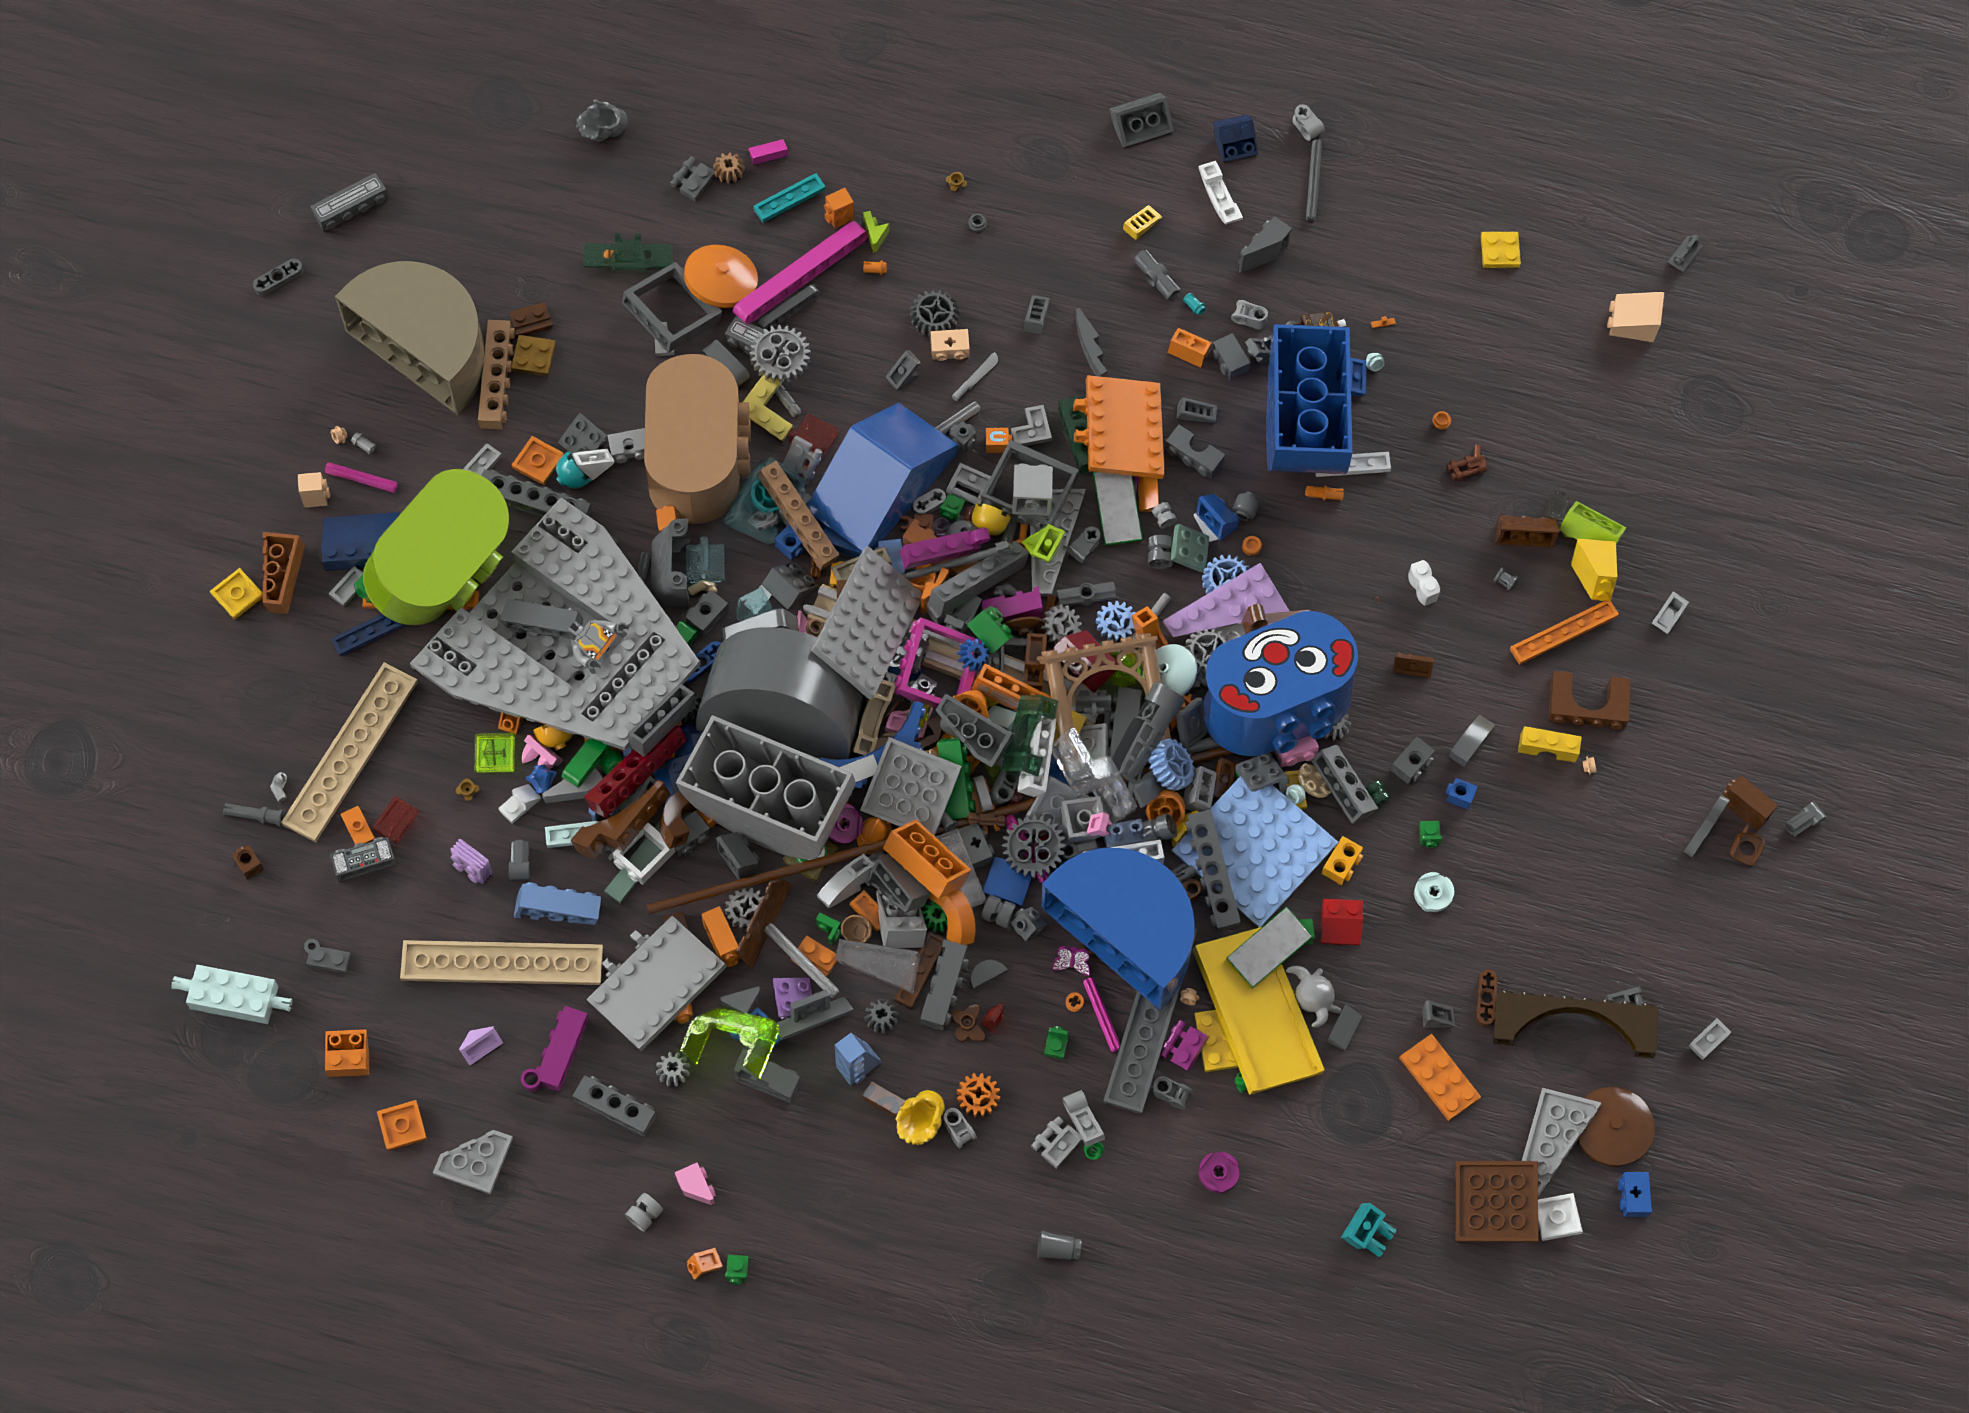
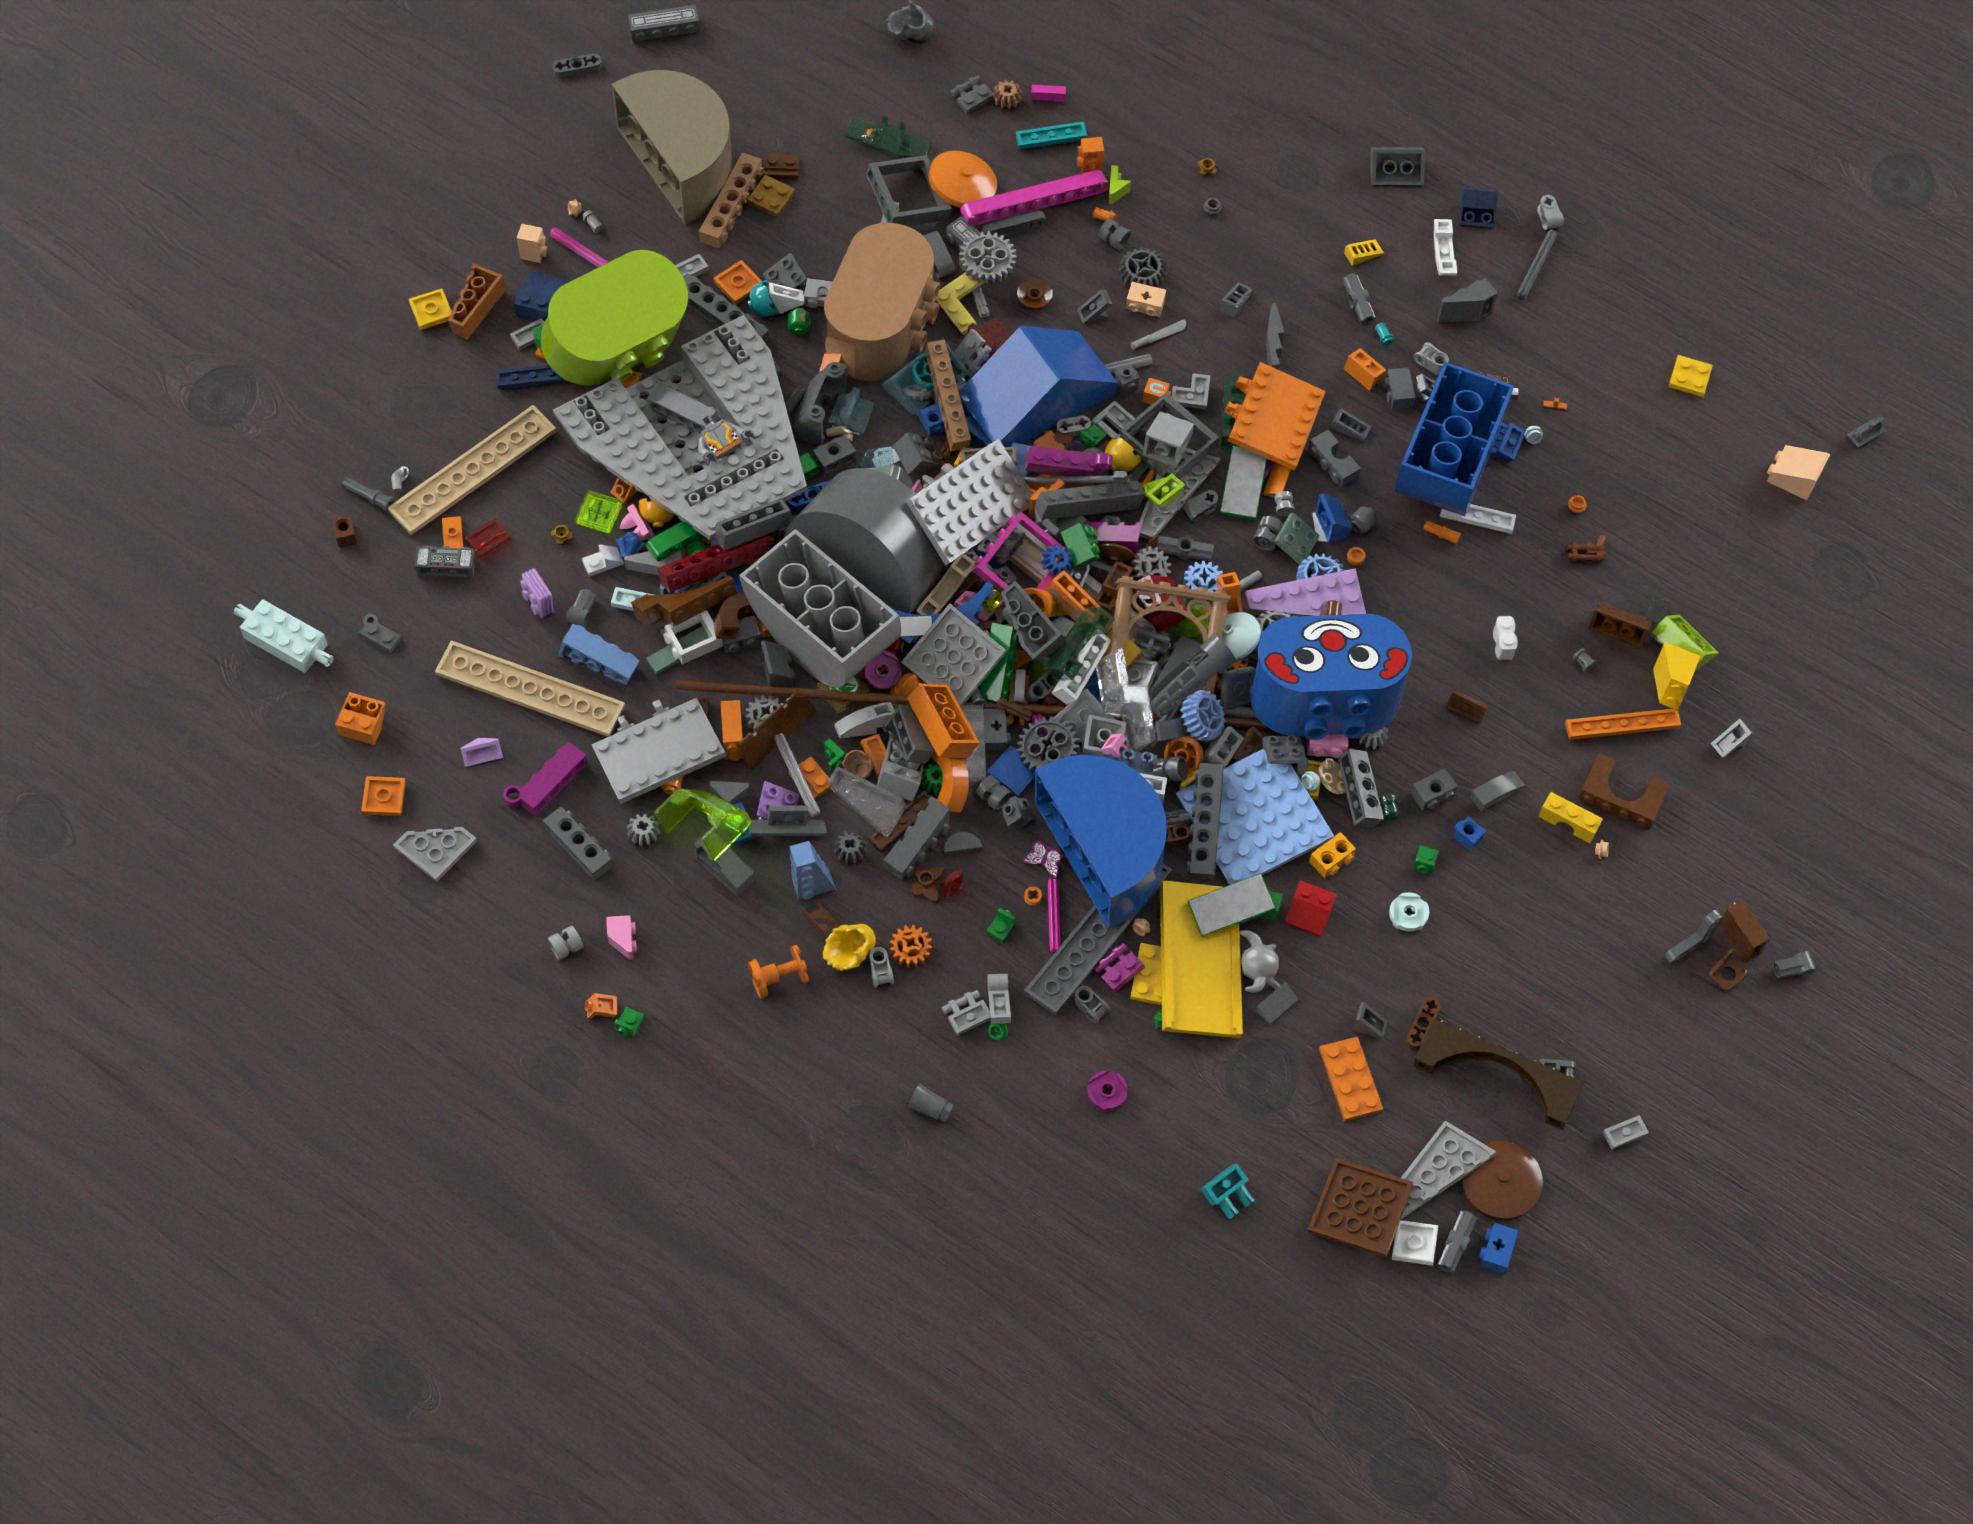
camera: 20 degrees right, 5 degrees down
(616, 483) = (799, 321): none -> green head
(838, 367) = (1037, 288): none -> reddish brown dish
(857, 1172) = (771, 974): none -> orange piece
(899, 282) = (1114, 234): none -> dark grey wheel
(1595, 1202) = (1457, 1242): none -> dark grey piece

